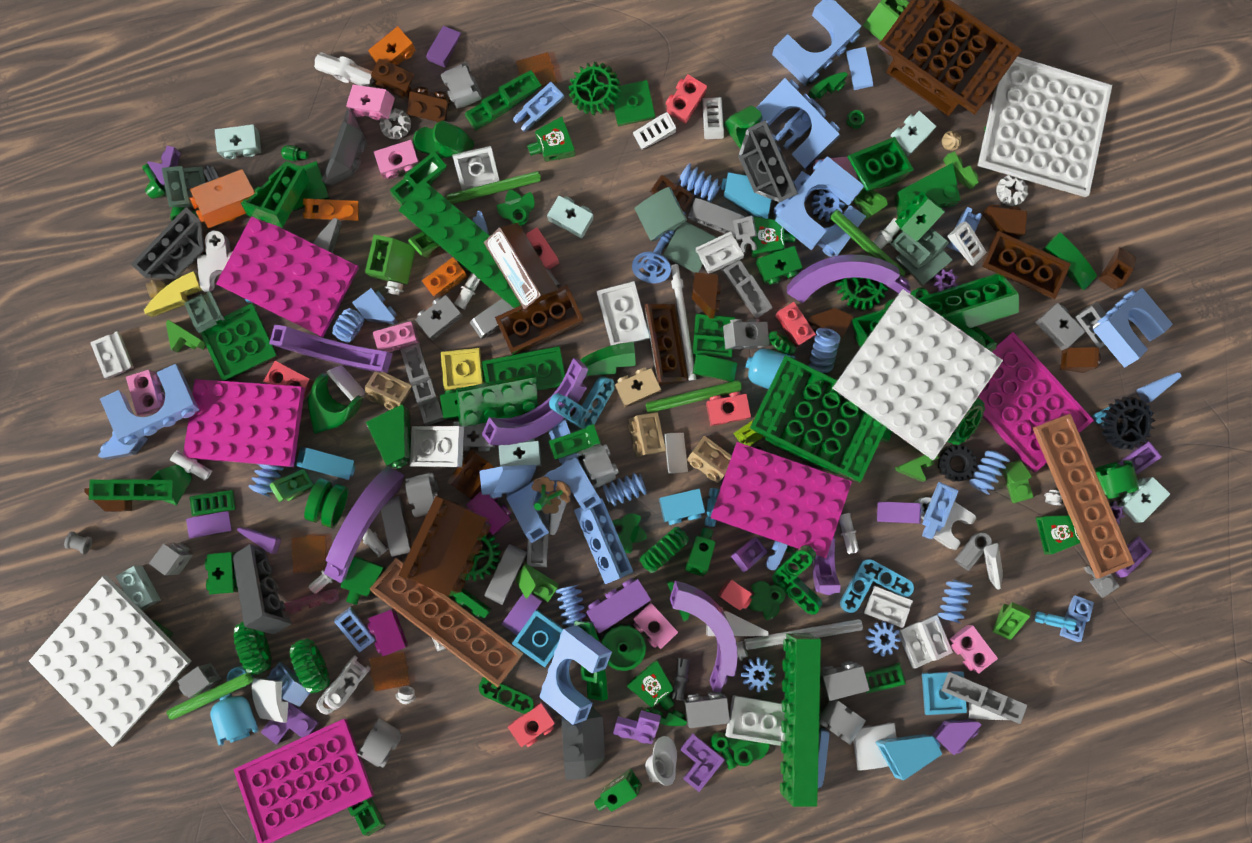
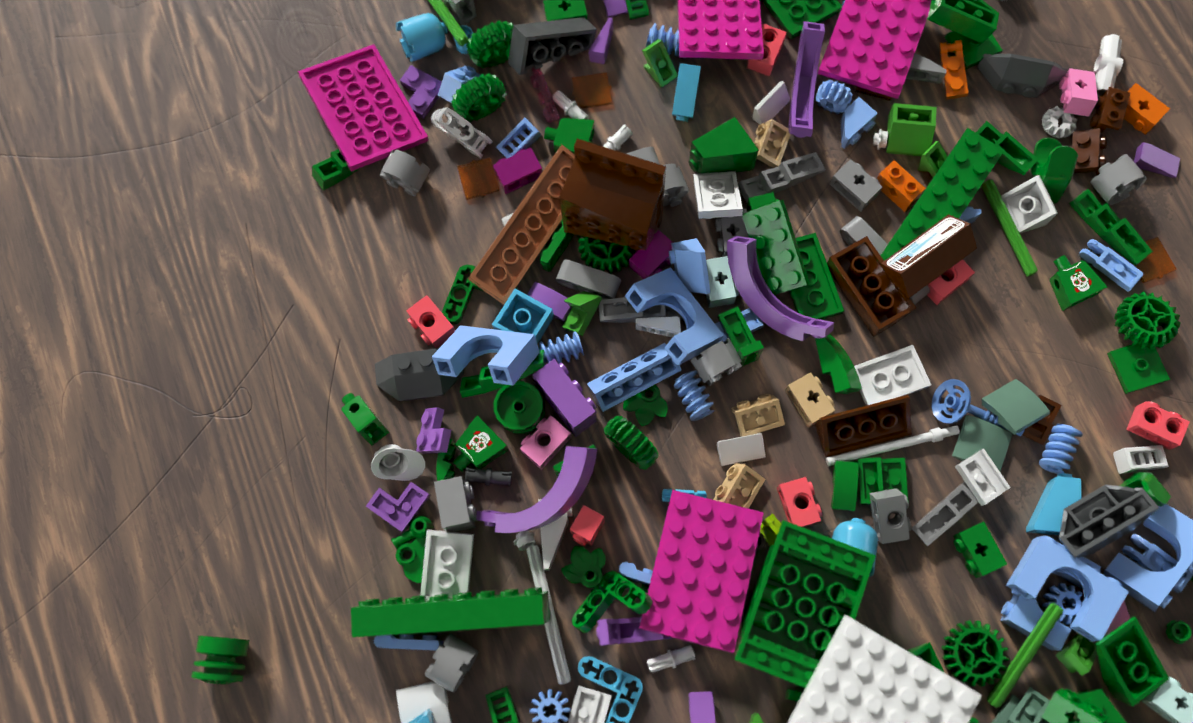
camera: 90 degrees right, 10 degrees down
(268, 701) = (446, 62): white slope -> none
(293, 153) = (1006, 29): green cylinder -> none
(325, 411) = (741, 86): green animal -> none
(326, 503) = (645, 94): green wheel -> none
(358, 521) = (633, 122): medium lavender arch -> none
(386, 157) = (1022, 116): bright pink brick -> none
(396, 337) = (828, 145): bright pink brick -> none
(405, 694) = (455, 194): white plate -> none
(461, 368) = (806, 214): light yellow tile -> none
(467, 291) = (888, 211): white axle -> none
(468, 476) = (690, 227): reddish brown bracket -> none
(516, 205) = (993, 252): green plate -> none
(550, 502) = (671, 310): medium nougat plant -> none
(576, 225) = (985, 317): light aqua brick -> none
(583, 411) = (773, 341): medium azure beam -> none
(651, 125) = (1111, 405): white slope -> none
(682, 505) = (682, 457): medium azure brick -> none
(693, 396) = (808, 464): bright green axle -> none
(699, 561) = (621, 482): green torso -> none
(705, 293) = (932, 465): reddish brown slope -> none
(713, 216) = (1022, 473): light grey beam -> none
(744, 231) = (1015, 502): light grey plate -> none
(749, 554) = (634, 541): medium lavender slope -> none
(755, 681) = (507, 563): light blue gear -> none
(769, 237) = (1012, 533): green torso -> none
(782, 343) = (886, 559): green gear -> none
(795, 325) = (911, 574): coral brick -> none
(824, 350) = (886, 610): light blue piece -> none
(831, 319) = (921, 617): reddish brown slope -> none
(843, 680) = (497, 661): light grey brick -> none
(845, 267) = (994, 628): medium lavender arch -> none
(885, 236) = (1040, 680): white pin -> none

